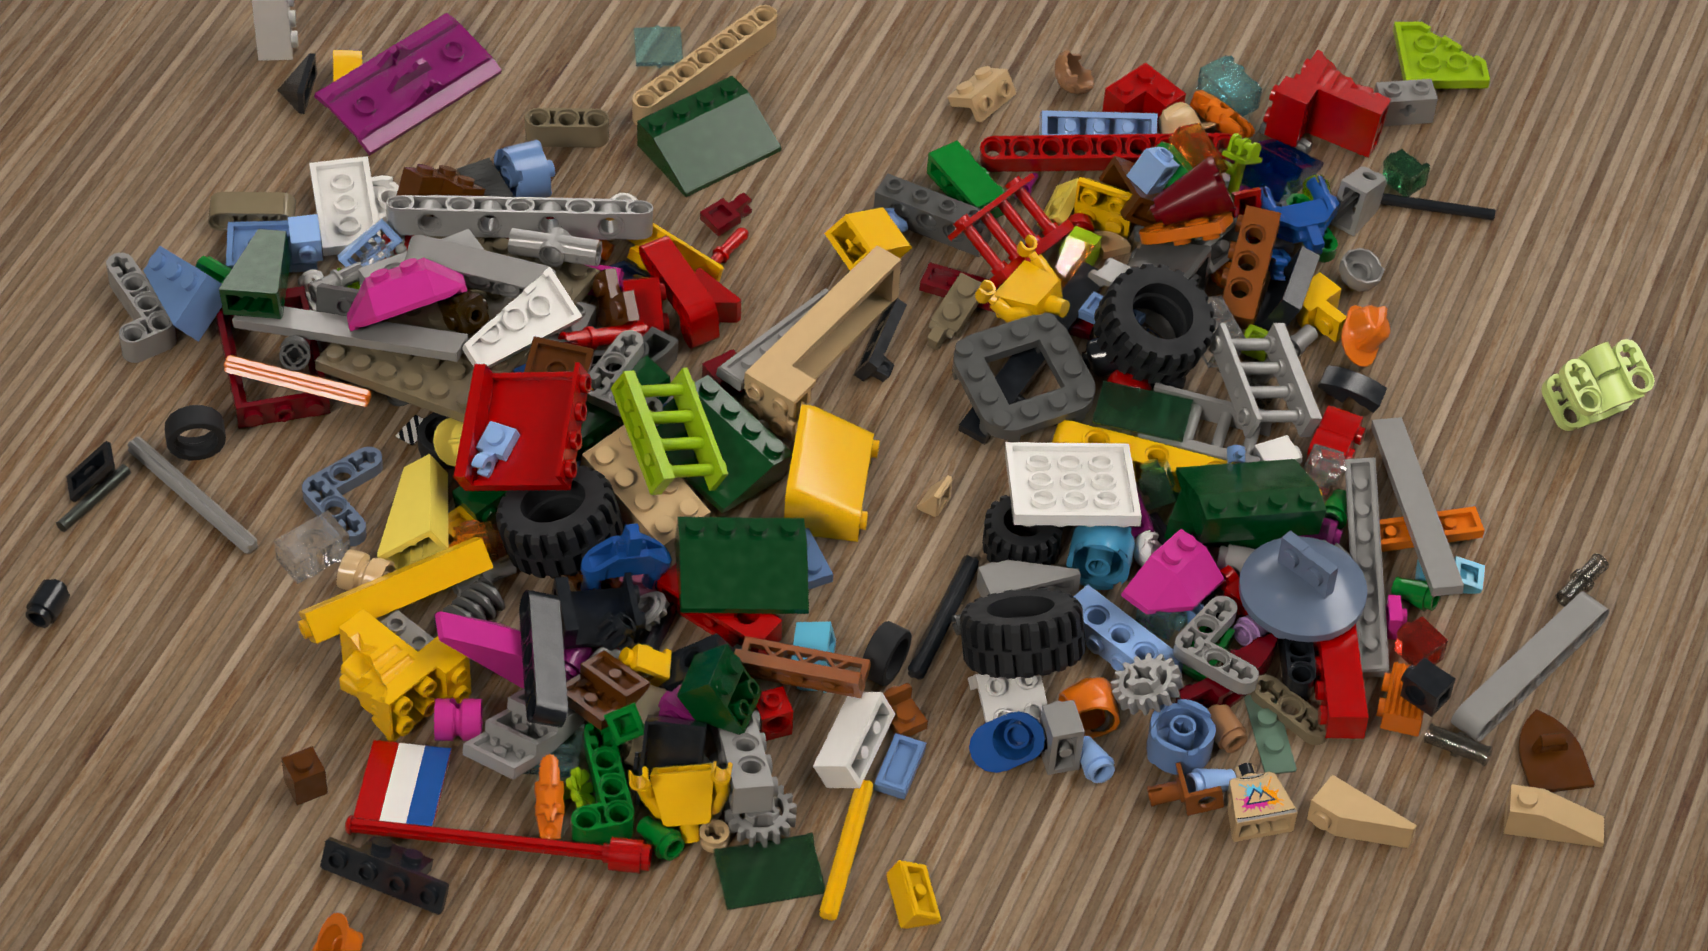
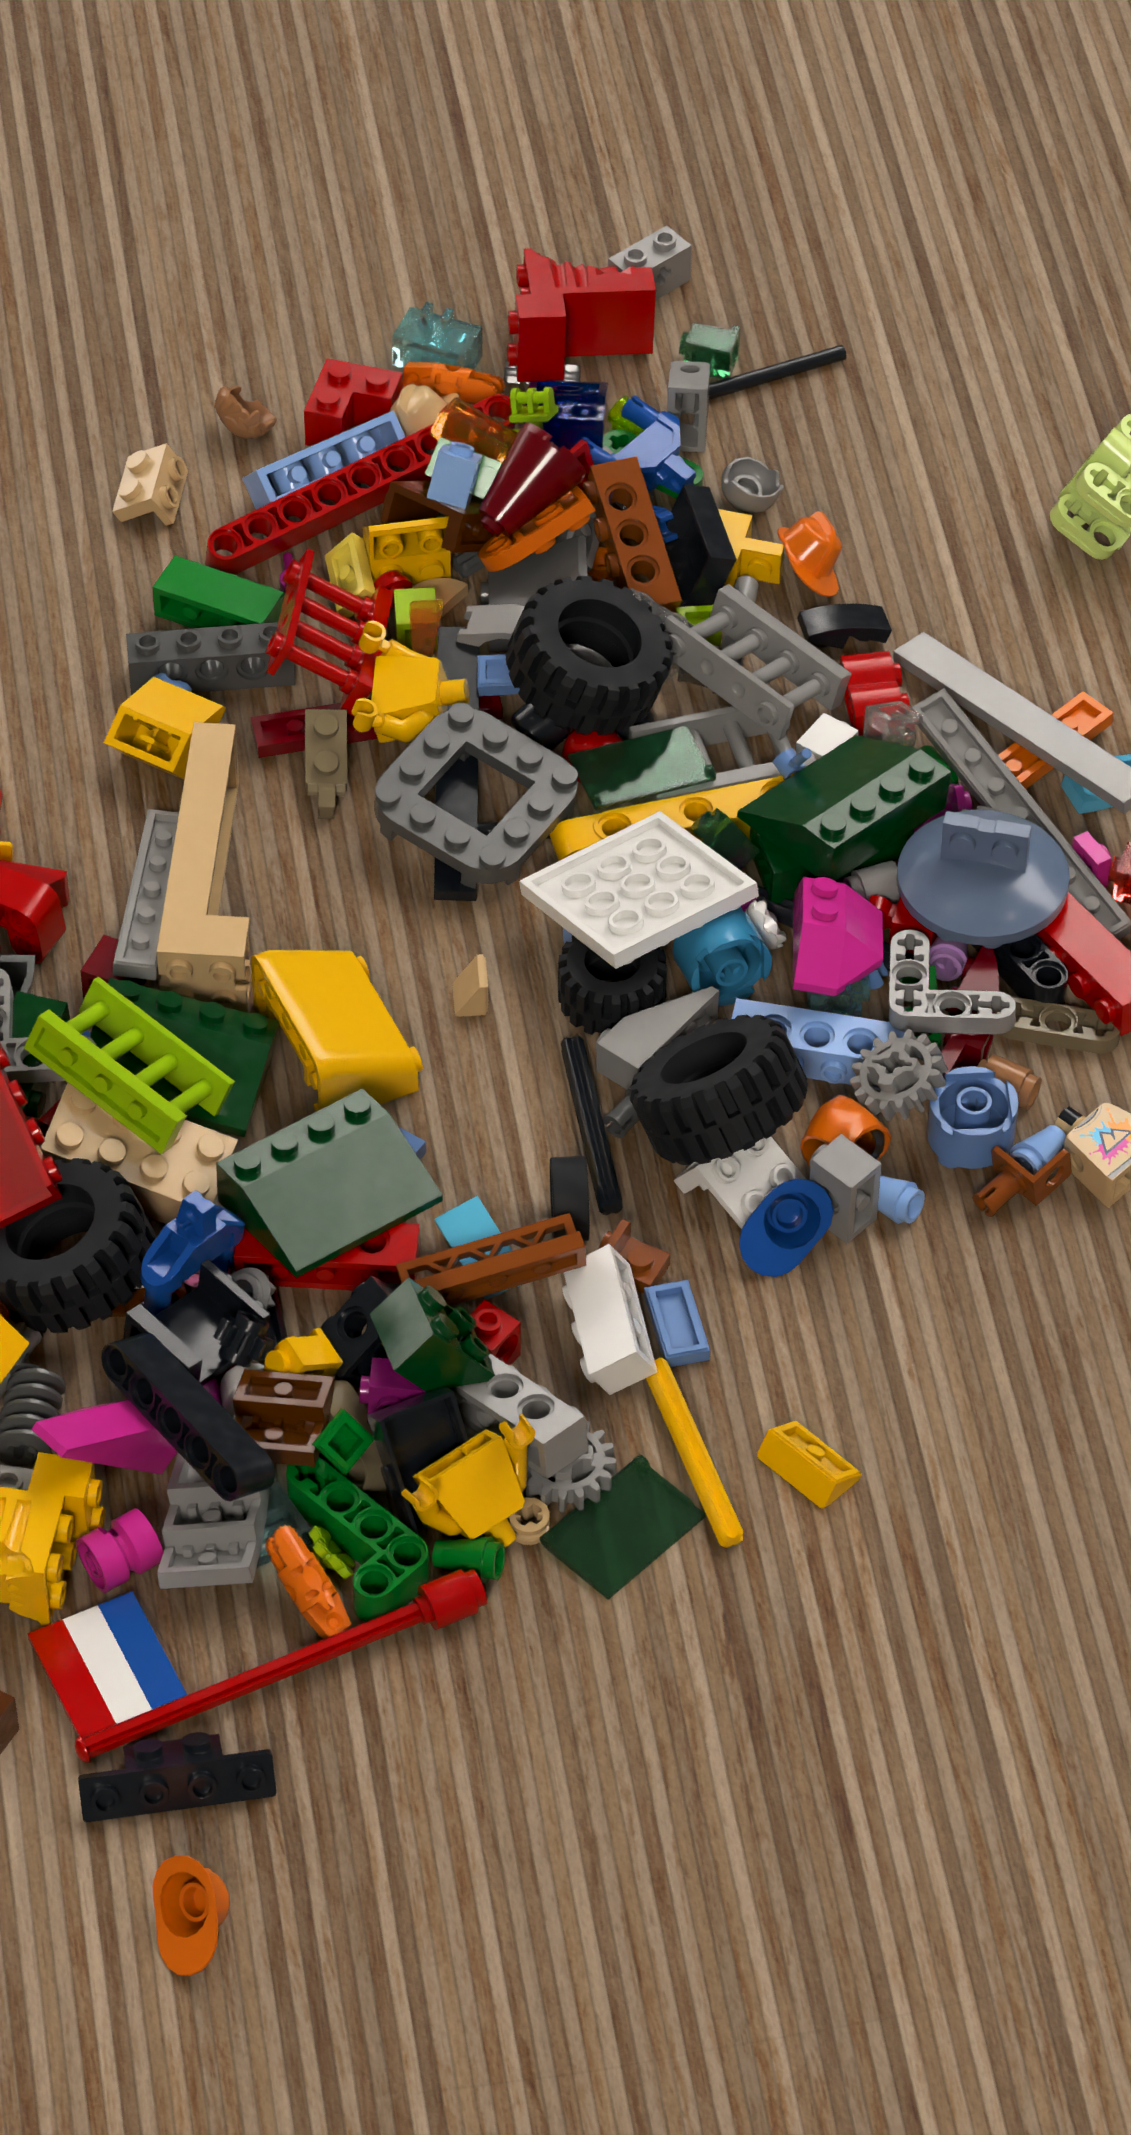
camera: 30 degrees left, 0 degrees up
(873, 359) = (266, 841): black hinge -> none
(1270, 739) = (1058, 1070): sand green piece -> none
(1415, 592) = (1097, 818): green cone -> none
(1437, 58) = (643, 202): lime plate -> none

